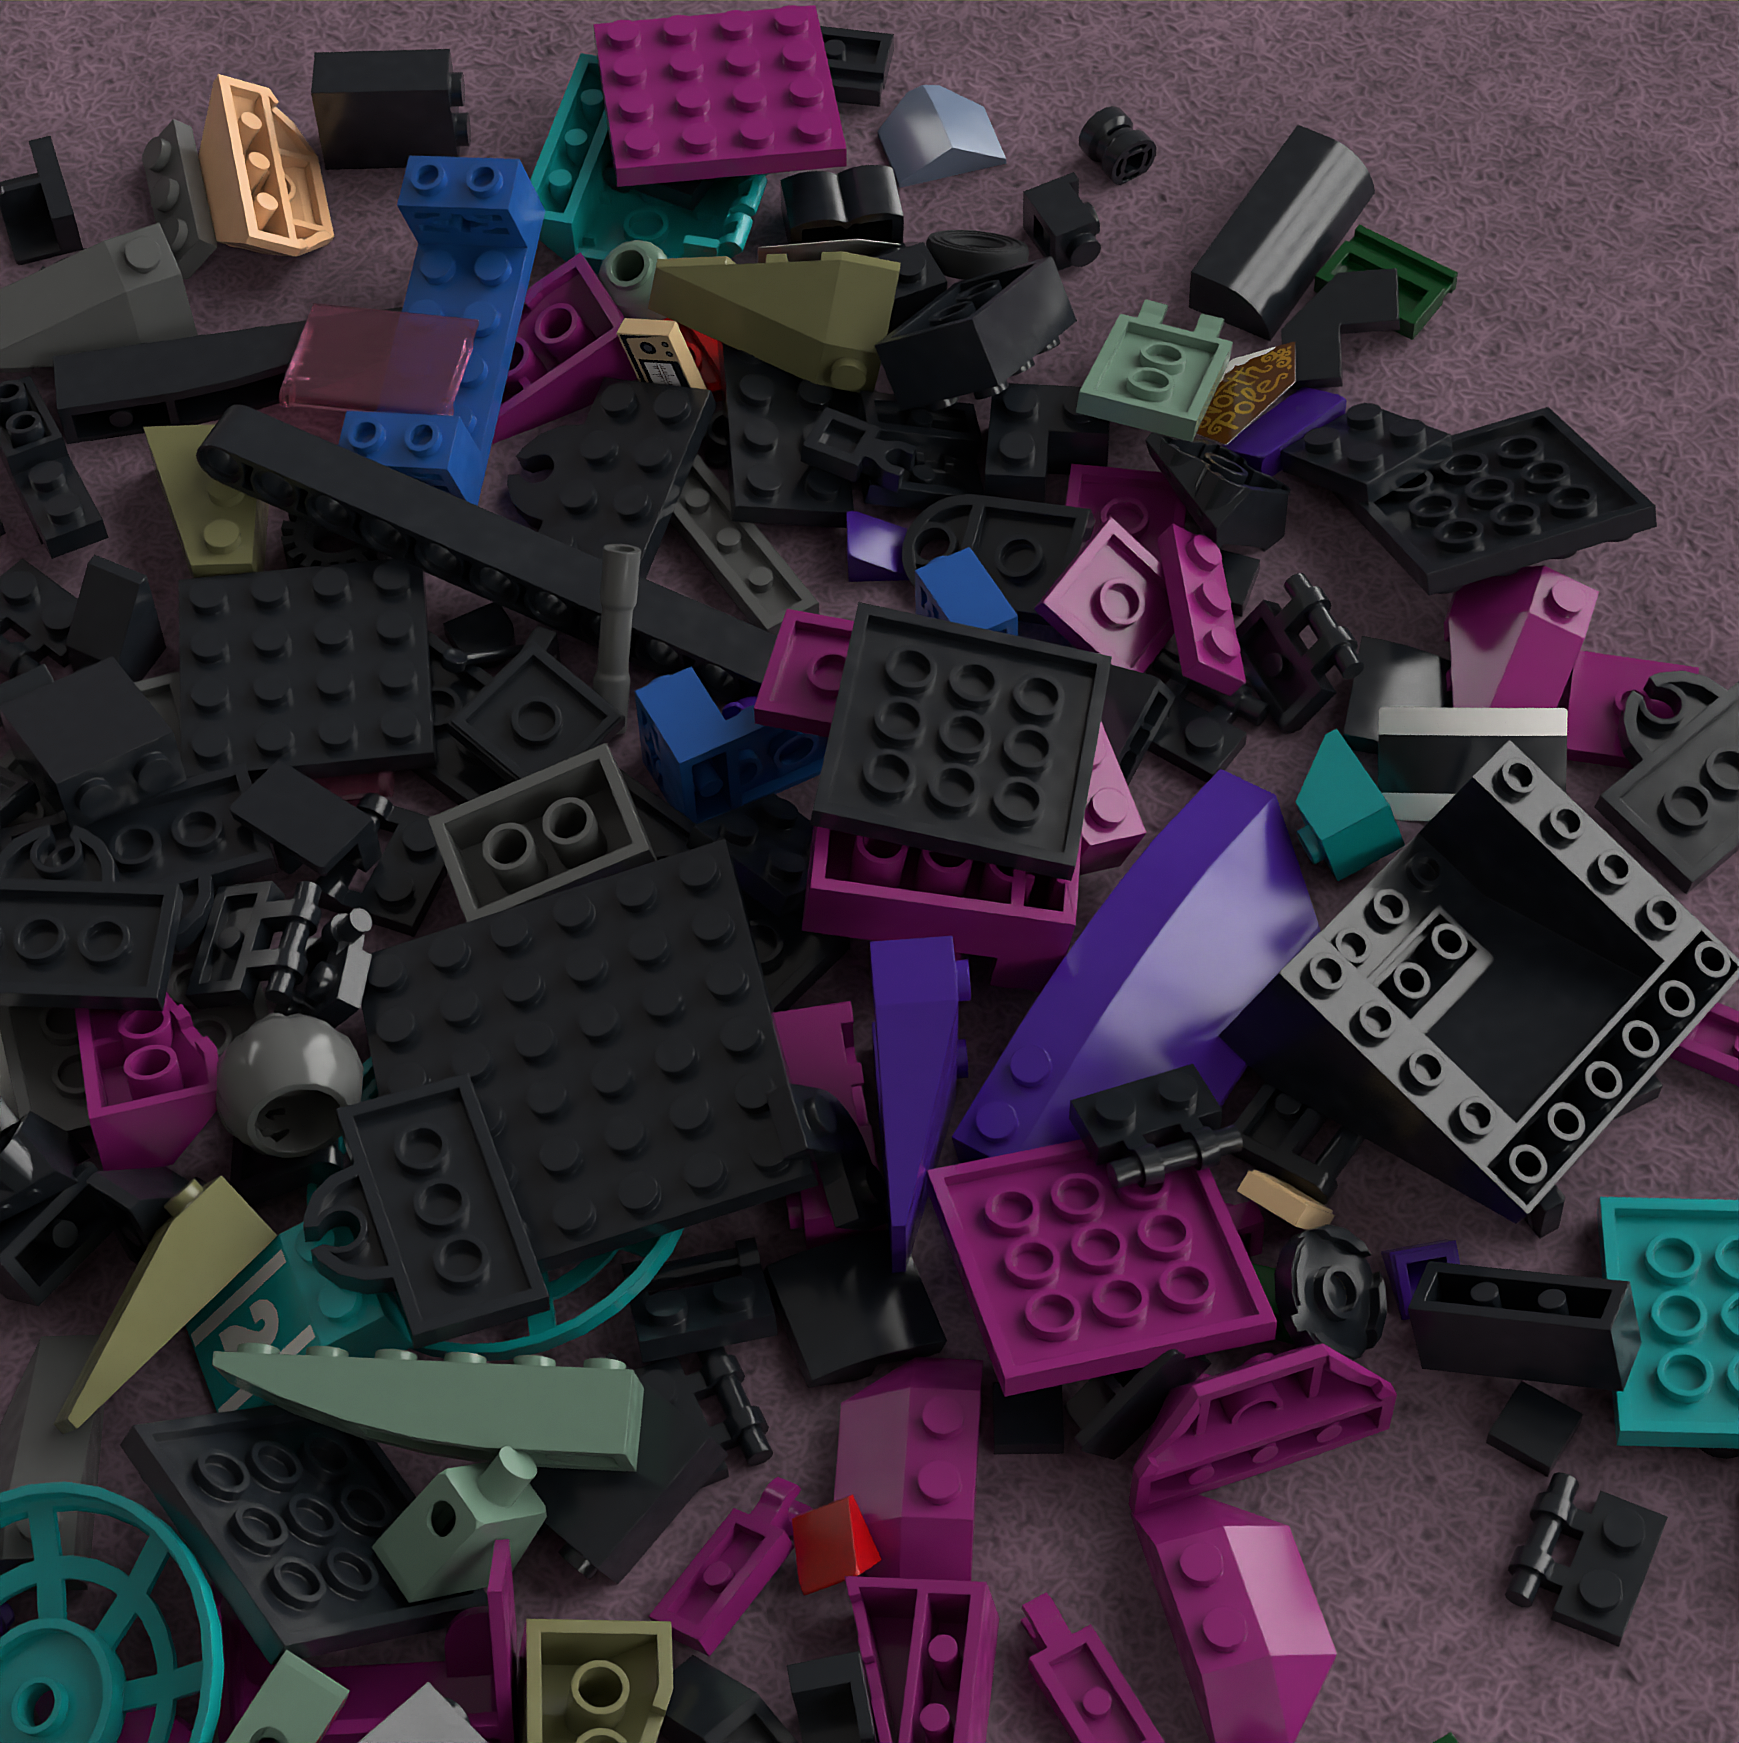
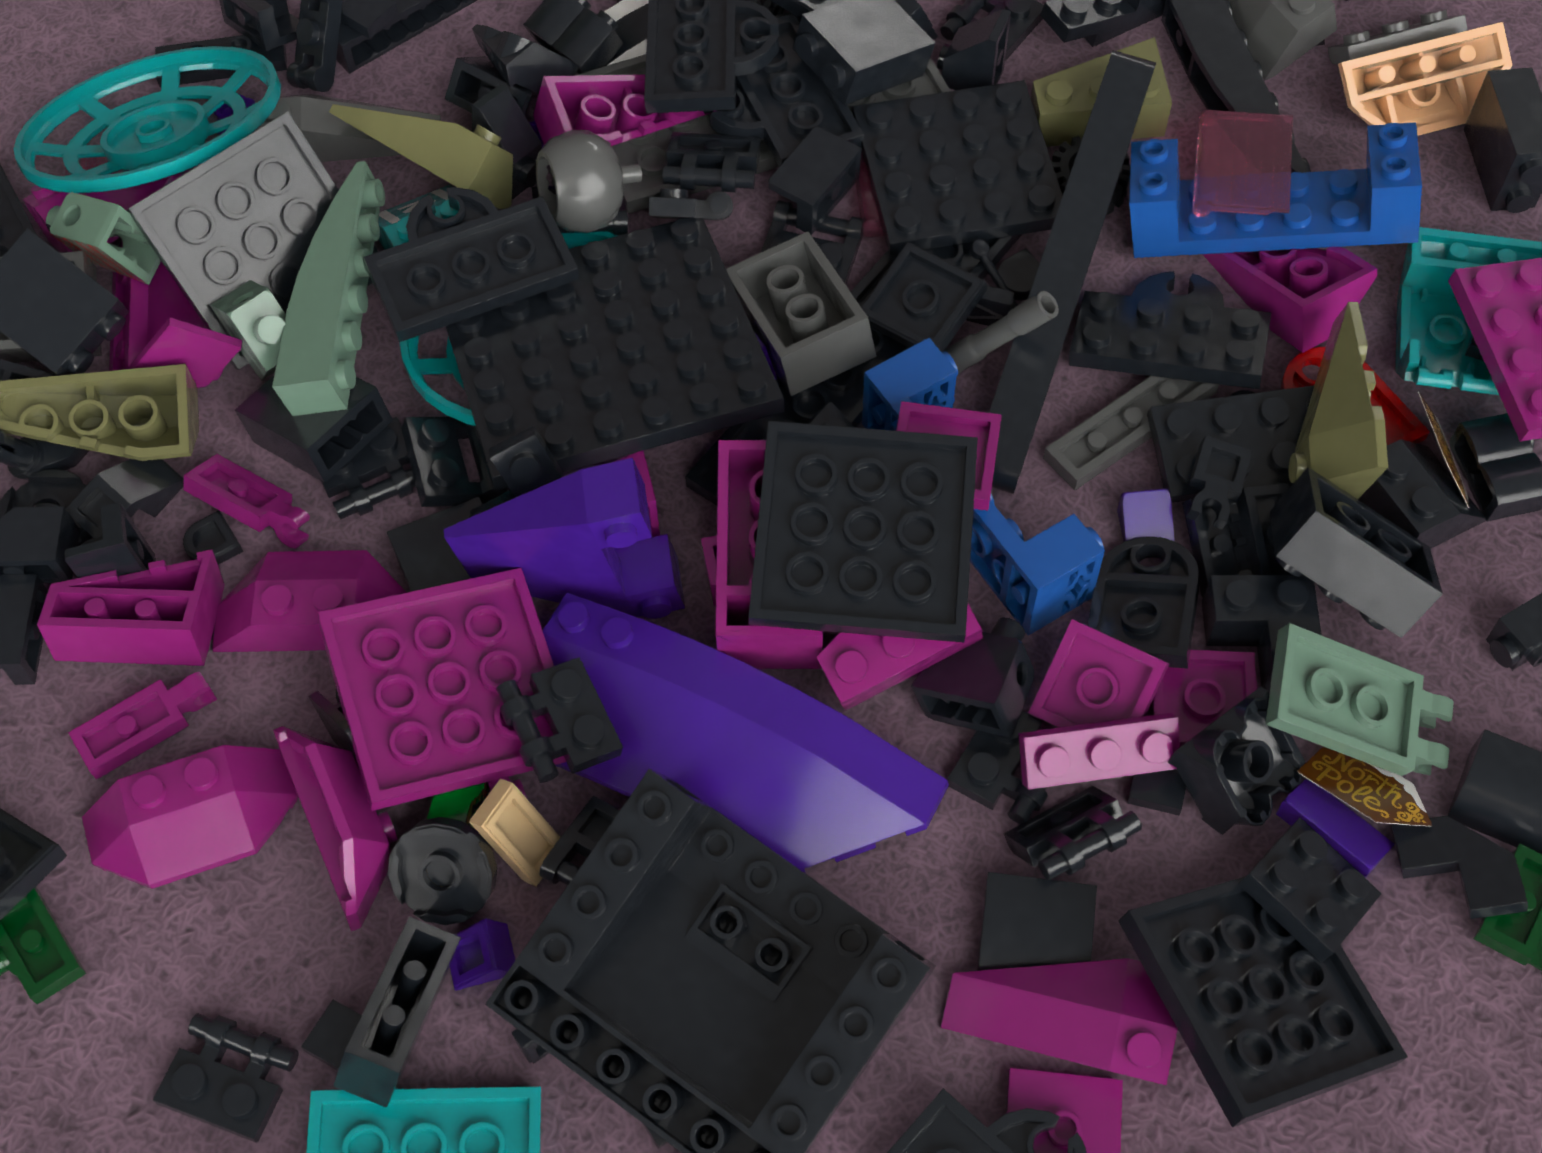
camera: 85 degrees right, 5 degrees up
(629, 277) = (1383, 322): sand green head -> none
(659, 353) = (1282, 343): tan tile -> none
(789, 1626) = (210, 534): none -> black tile
(832, 1544) = (247, 551): red slope -> none
(974, 253) = (1488, 562): black tyre -> none
(1344, 812) = (915, 876): teal slope -> none
(1436, 751) = (973, 987): sticker -> none

